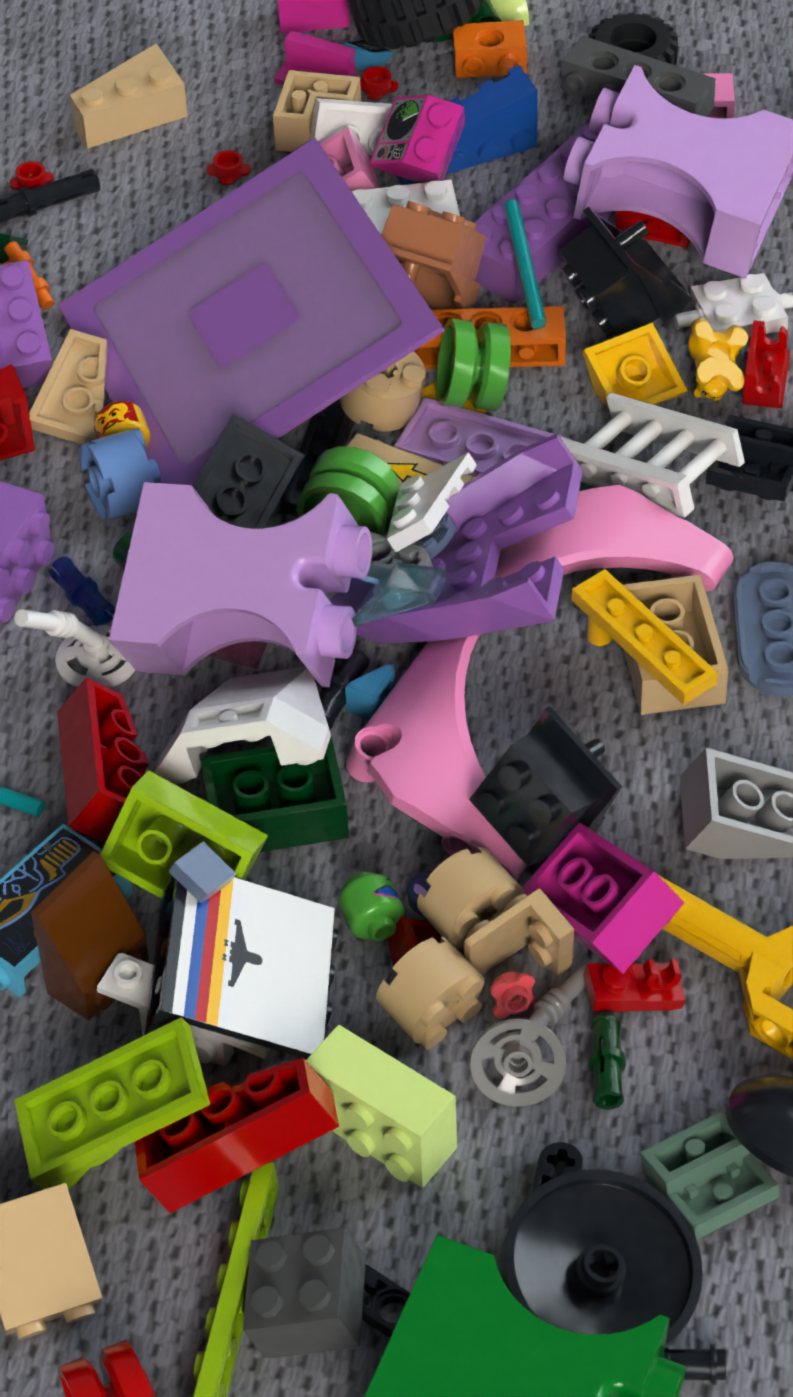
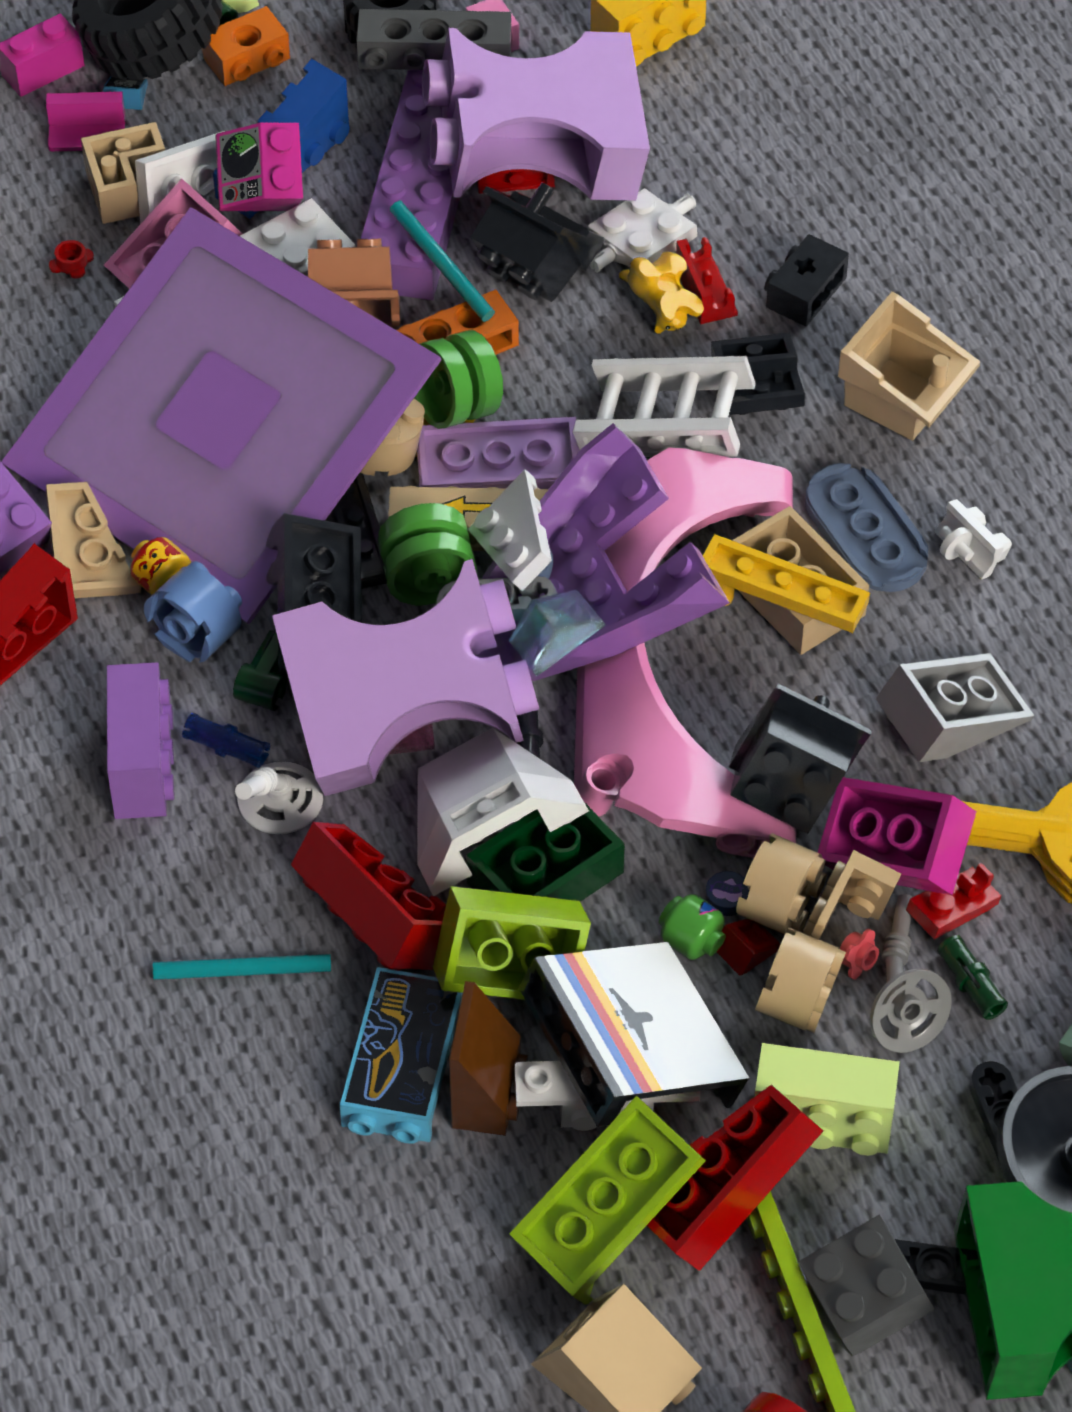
camera: 30 degrees left, 5 degrees up
(202, 872) = (562, 959): sand blue tile -> none
(369, 691) = (559, 733): dark azure slope -> none
(377, 82) = (161, 114): red plate -> none
(634, 367) = (590, 328): yellow slope -> none

